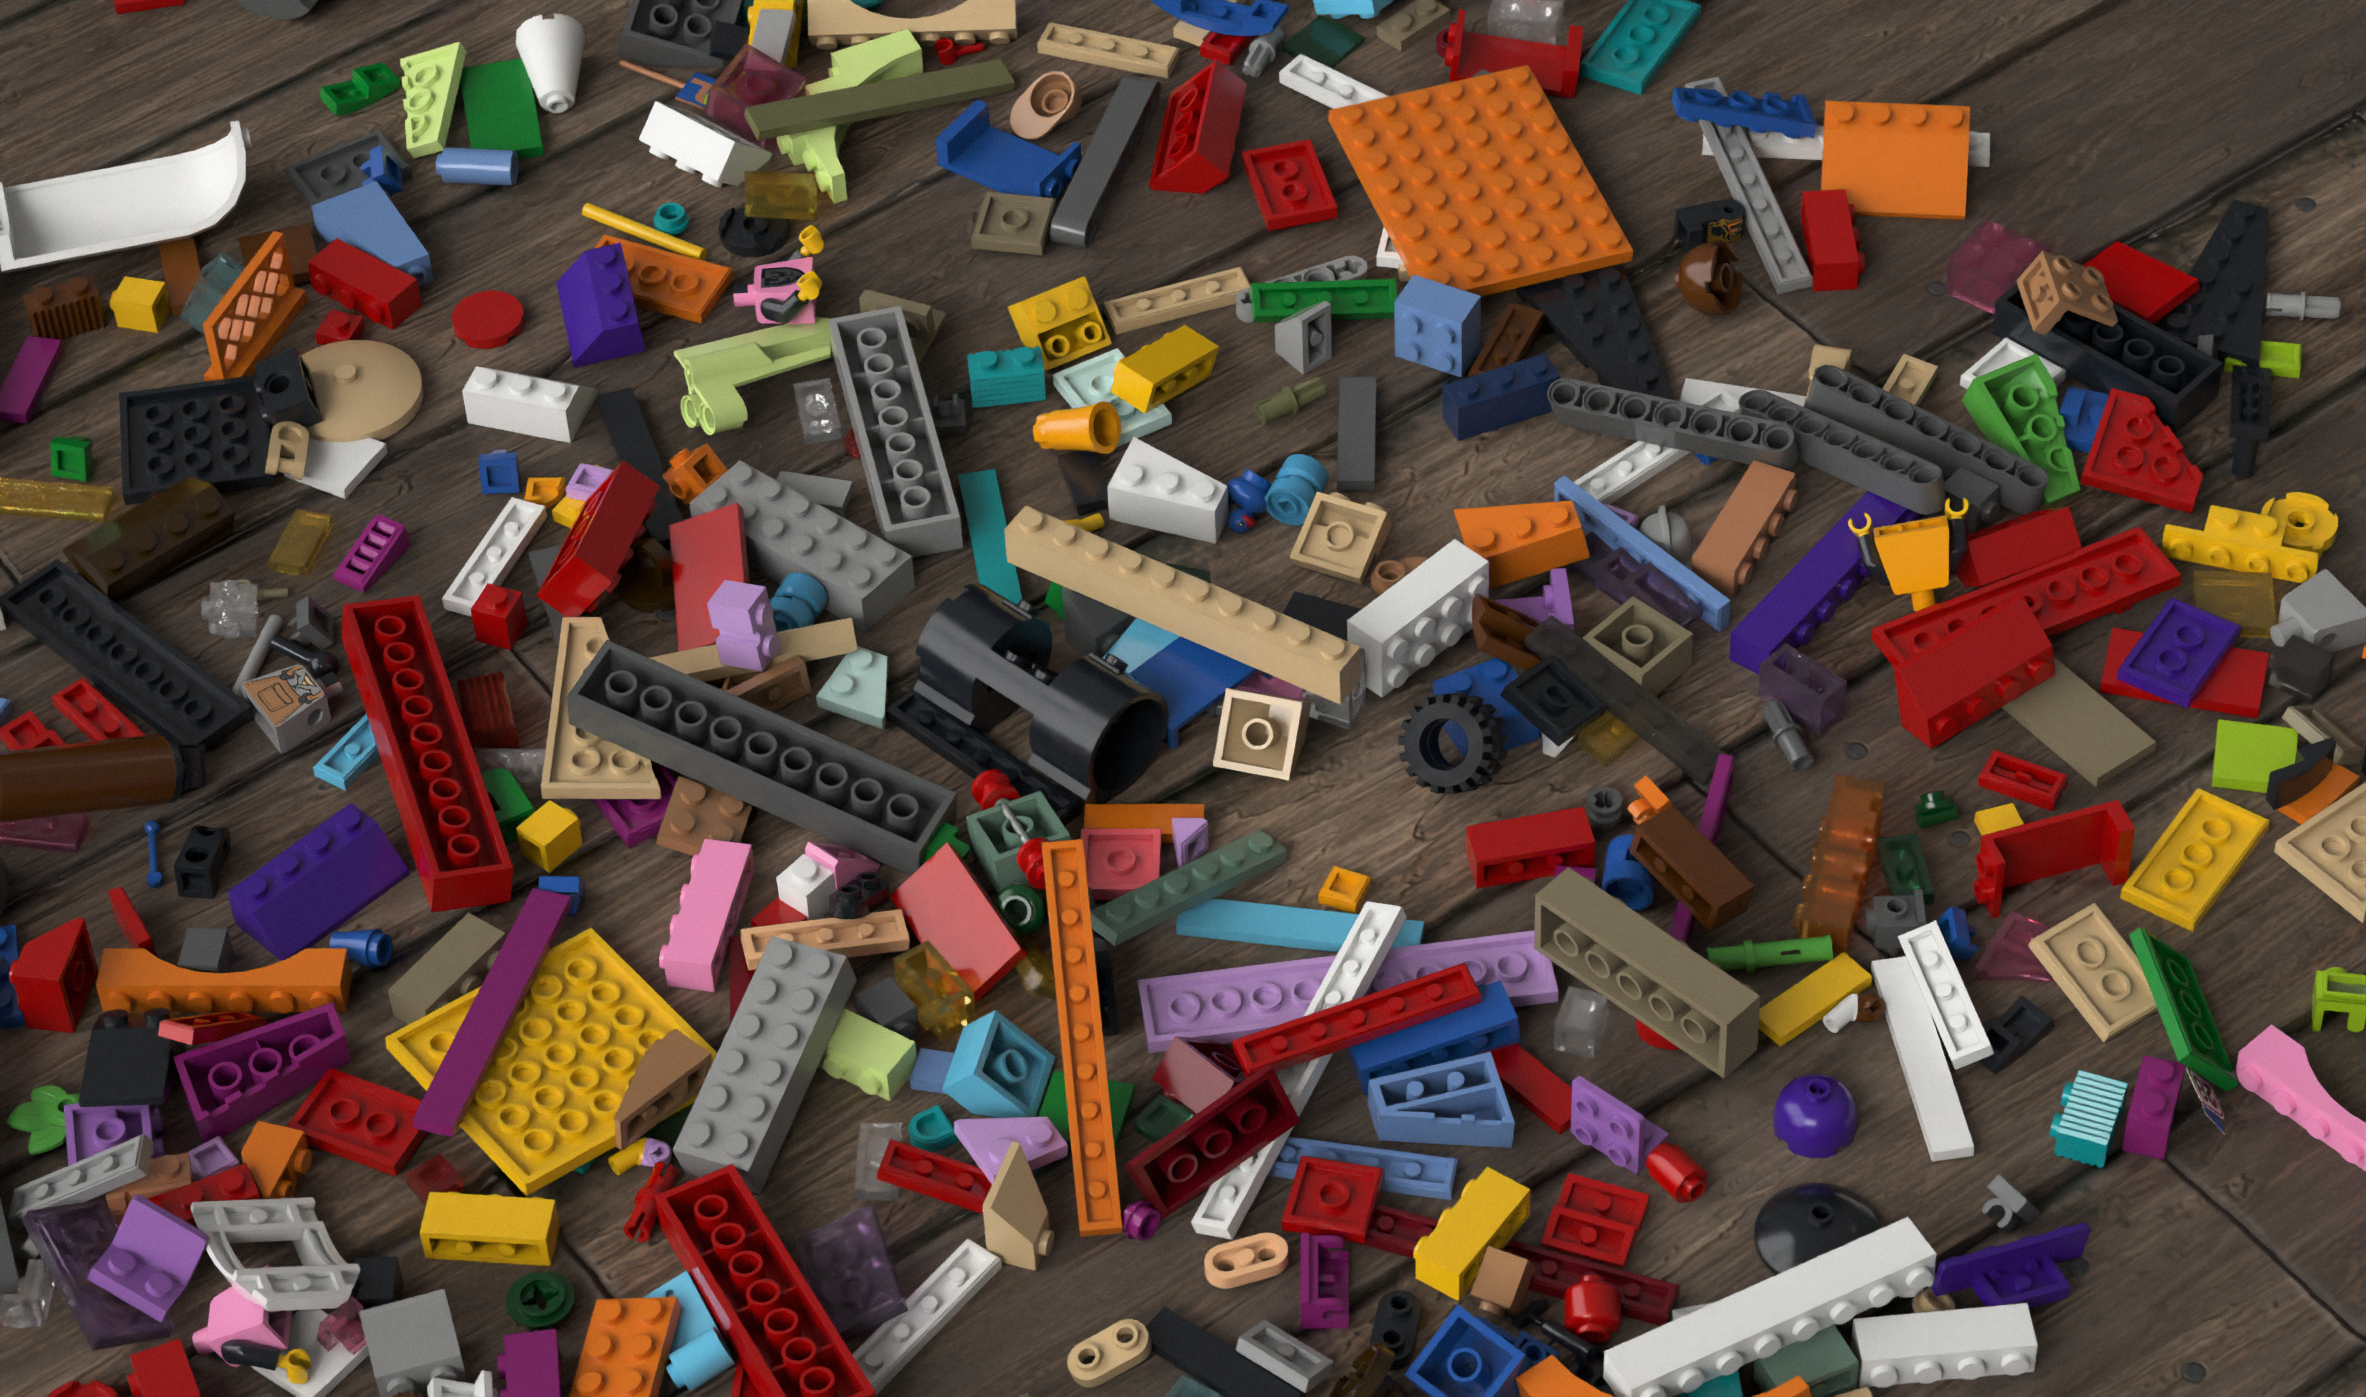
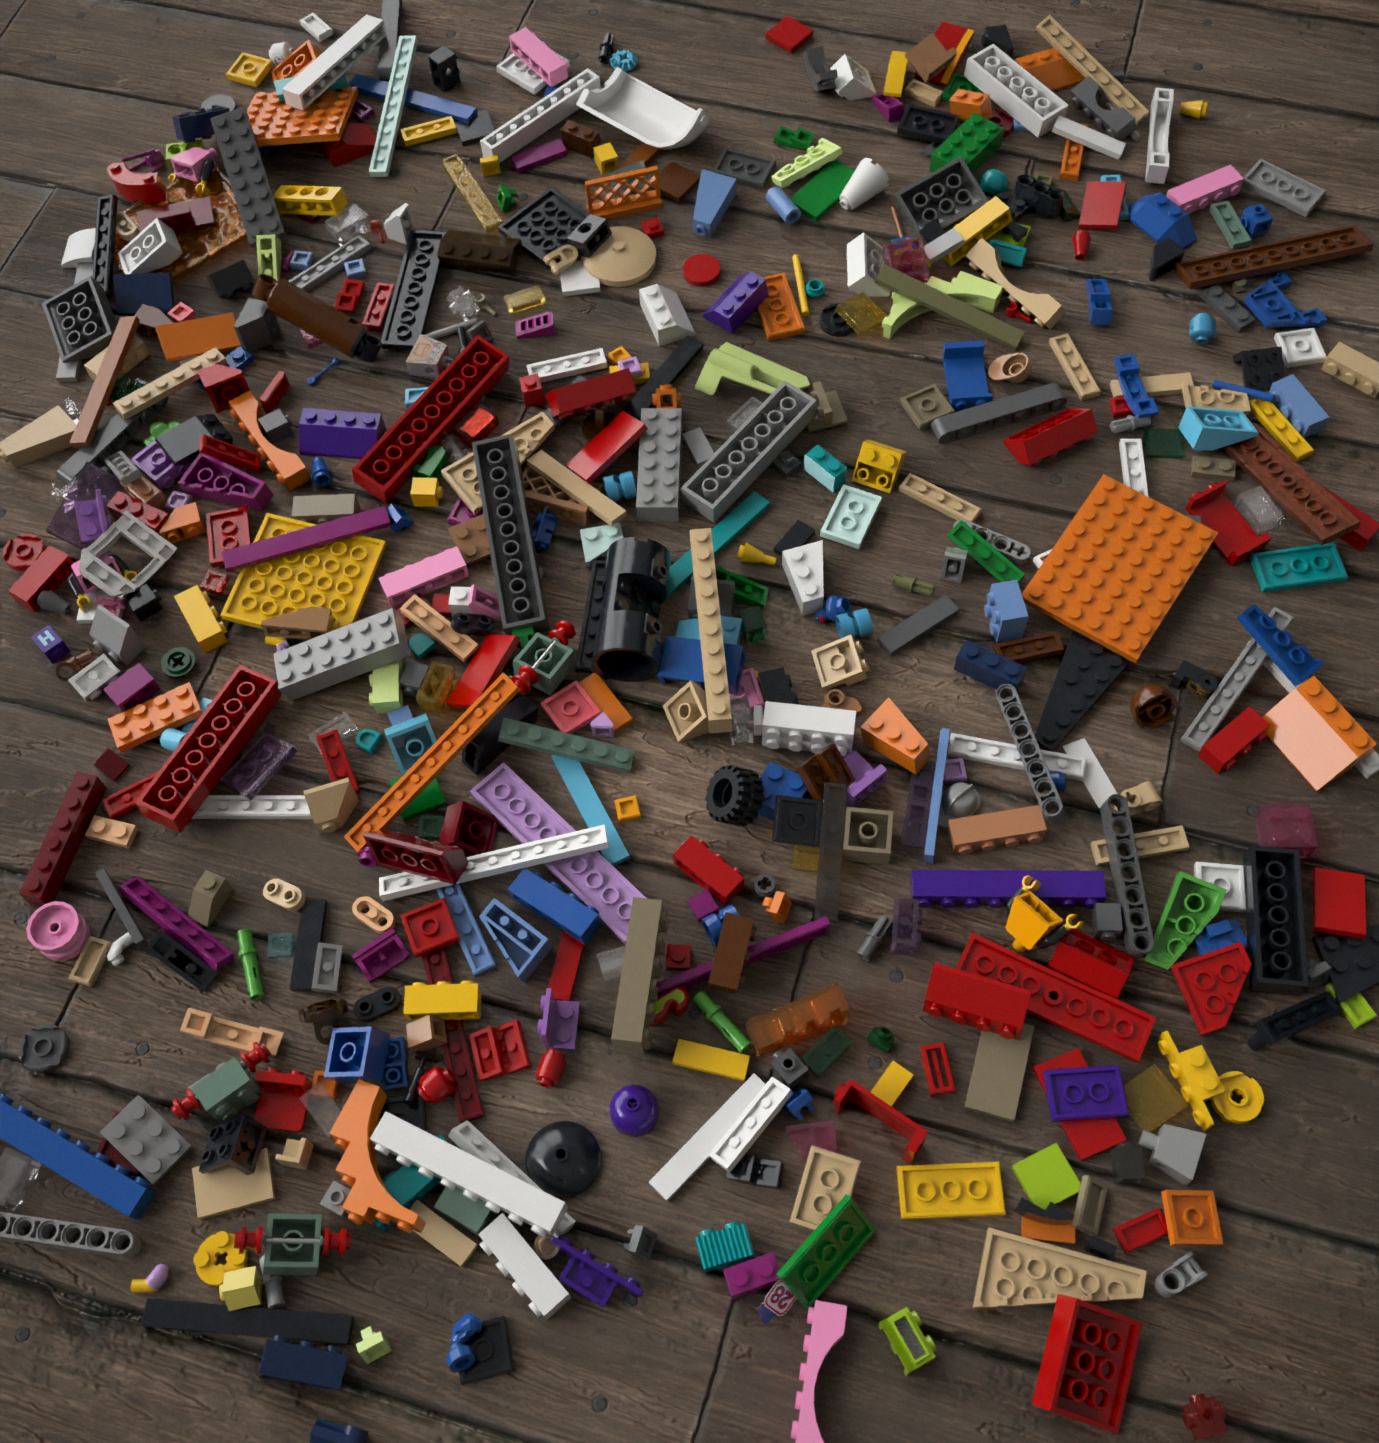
camera: 55 degrees right, 15 degrees up
(202, 861) = (327, 387): black leg -> none
(364, 284) = (680, 217): red brick -> none
(384, 169) = (746, 177): blue tile -> none
(499, 472) = (614, 333): blue tile -> none
(646, 1211) = (257, 663): red pin -> none
(744, 624) = (574, 475): lavender brick -> none
(785, 289) = (807, 355): torso -> none
(990, 1139) = (370, 776): lavender wing -> none
(1080, 429) = (814, 519): light orange plant -> none
(1164, 369) = (879, 523): yellow brick -> none
(1289, 185) = (1052, 492): red plate -> none
(1358, 1020) = (526, 869): red tile -> none
(1853, 454) = (1077, 843): dark grey beam -> none
(1856, 1009) = (719, 1085): arm -> none
(2057, 285) = (1282, 877): medium nougat bracket -> none

